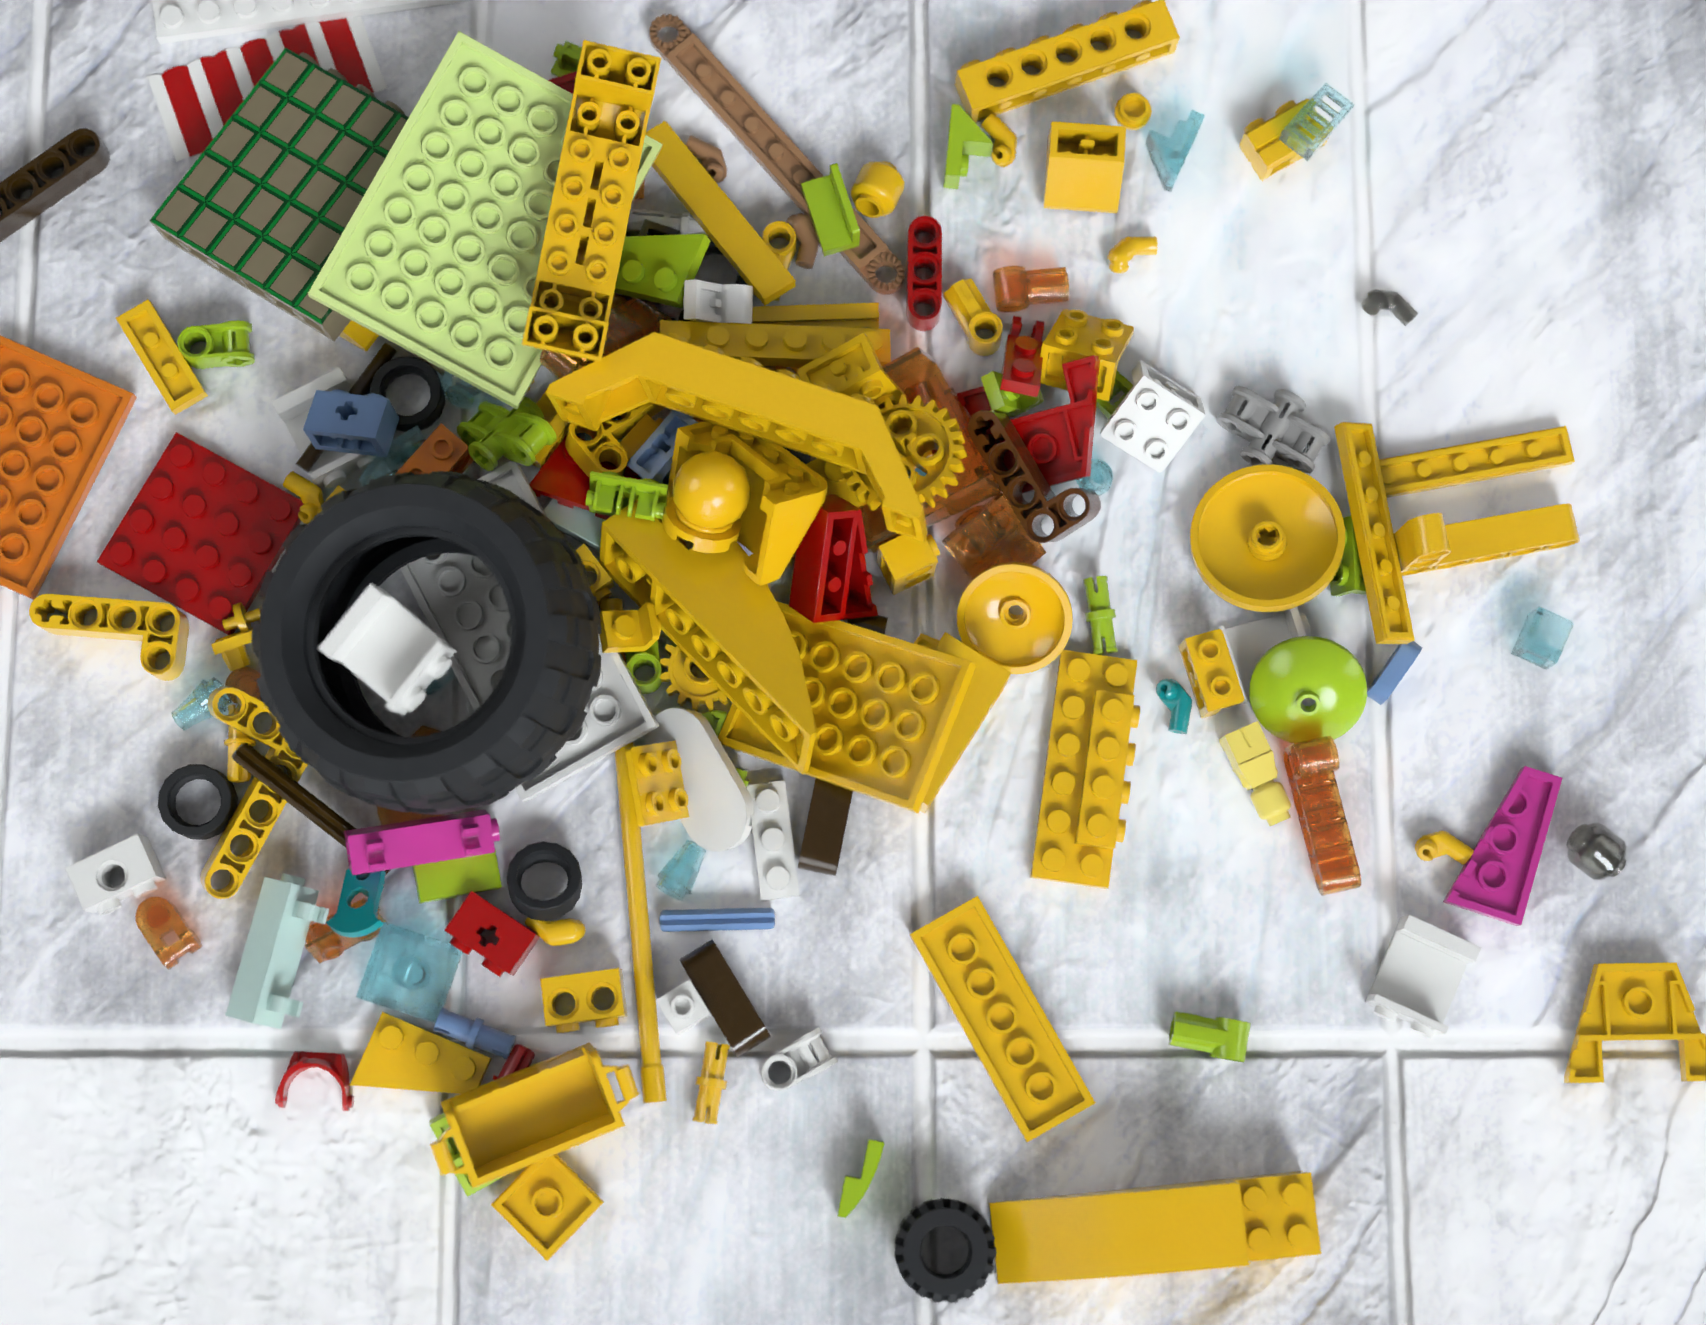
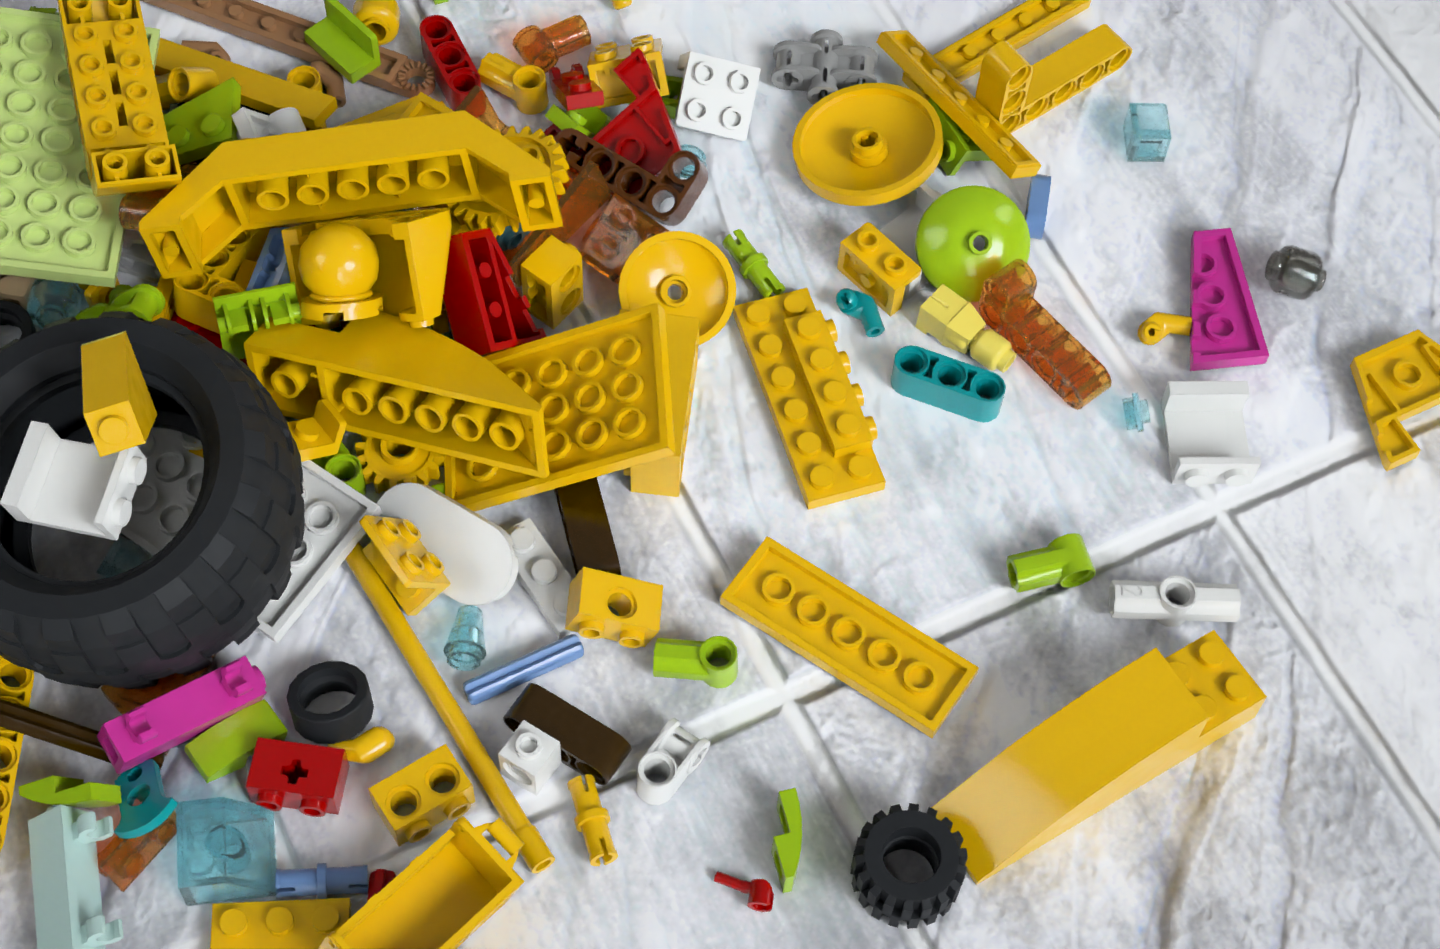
camera: 25 degrees left, 20 degrees down
(303, 870) = (71, 792): none -> lime slope
(442, 605) = (115, 395): none -> yellow slope
(666, 204) = (184, 84): none -> yellow piece
(816, 1210) = (759, 891): none -> red hand
(835, 911) = (633, 599): none -> yellow brick
(857, 979) = (691, 660): none -> lime piece
(1231, 823) = (966, 380): none -> teal beam
(1320, 1130) = (1198, 601): none -> white piece
(1367, 924) = (1136, 412): none -> clear light blue plate

